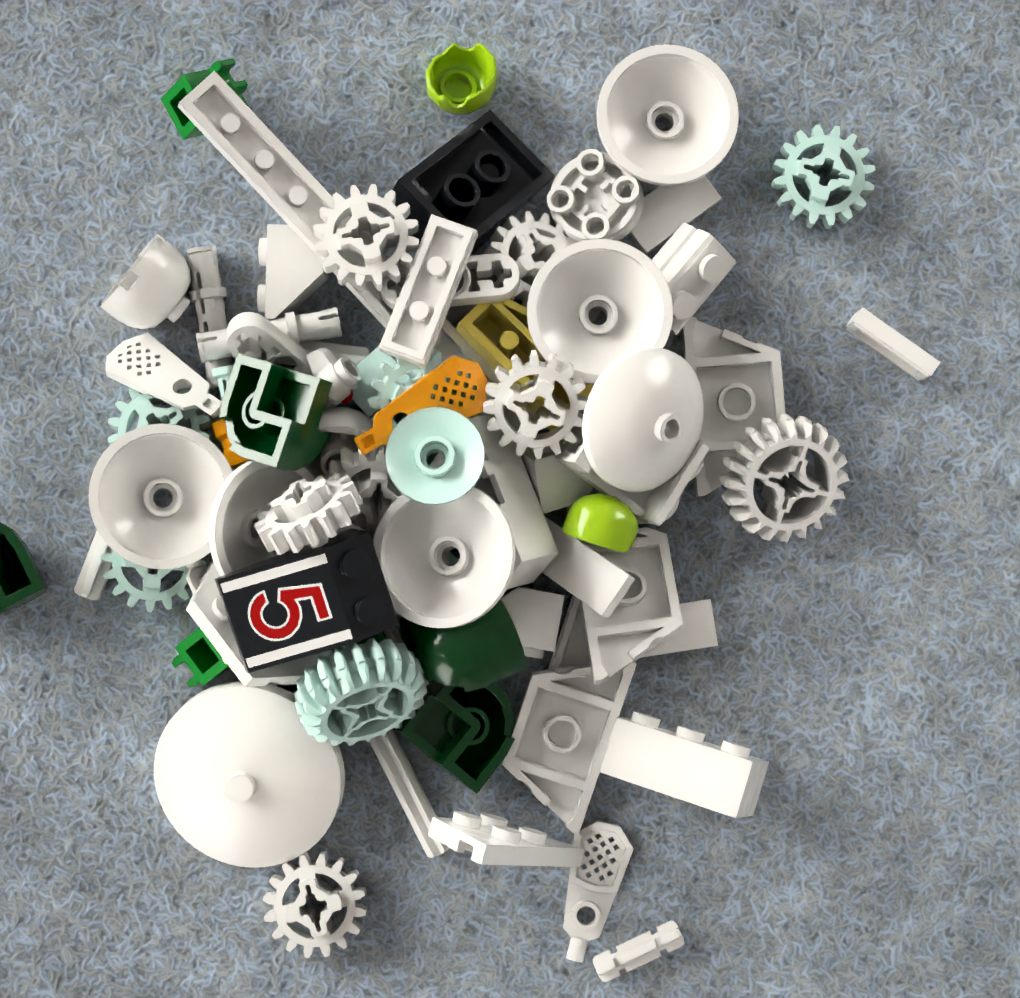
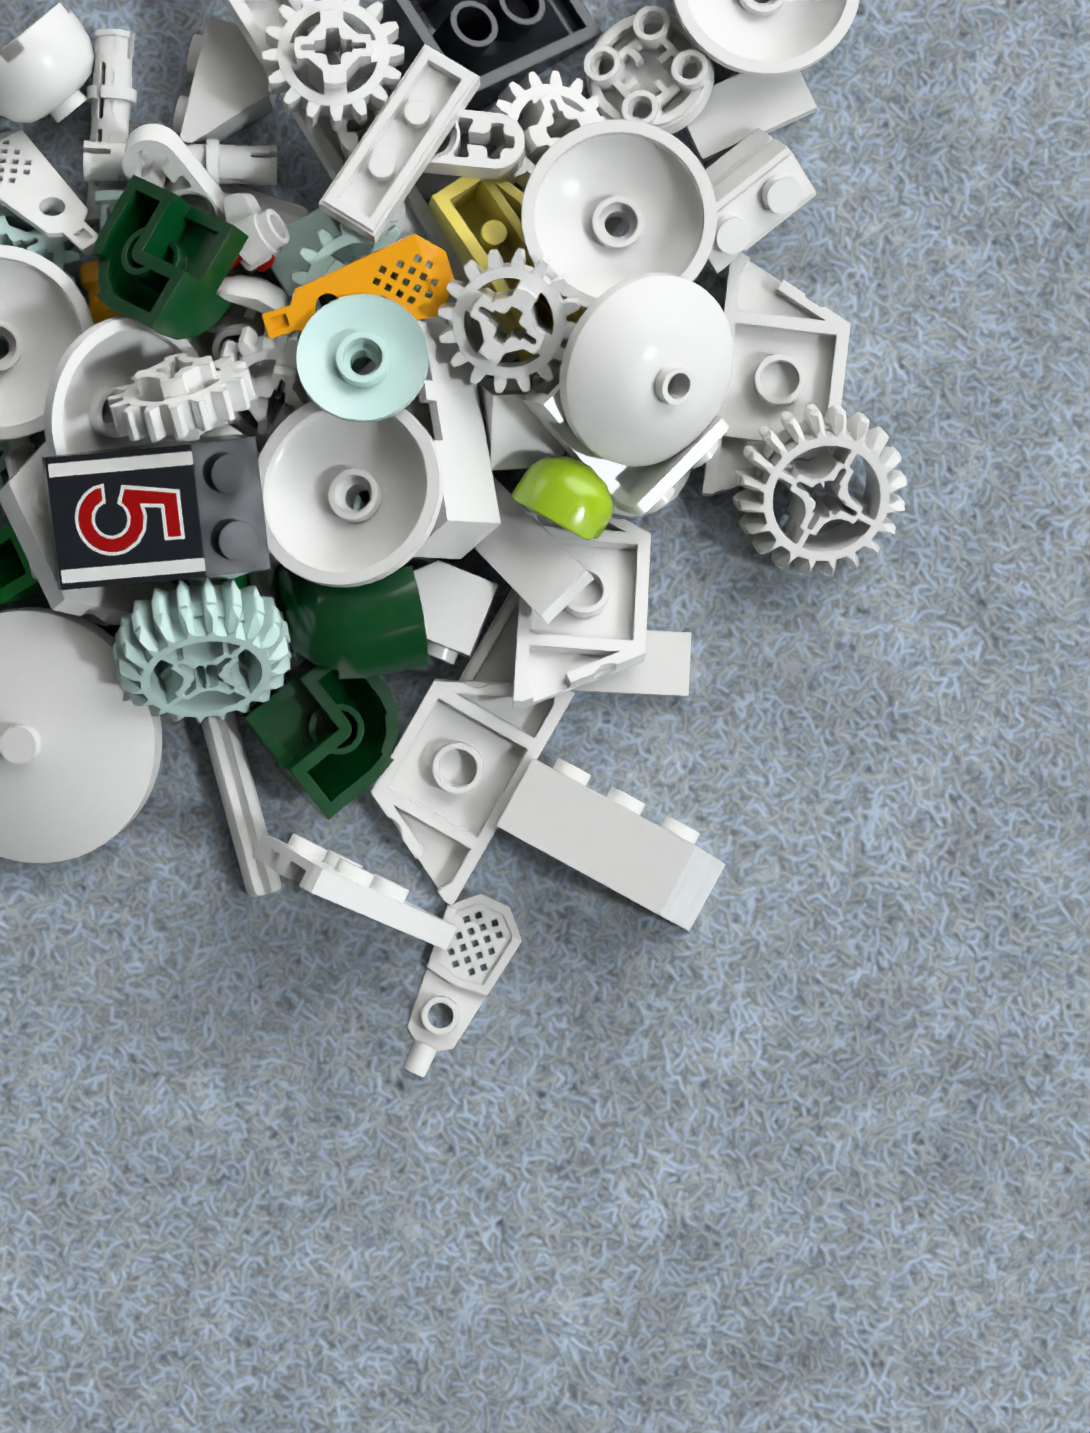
camera: 10 degrees right, 0 degrees up
(295, 909) = (86, 956): white gear -> none
(638, 951) = (499, 1076): white axle -> none
(804, 173) = (979, 114): light aqua gear -> none
(892, 345) = (1000, 346): white tile -> none

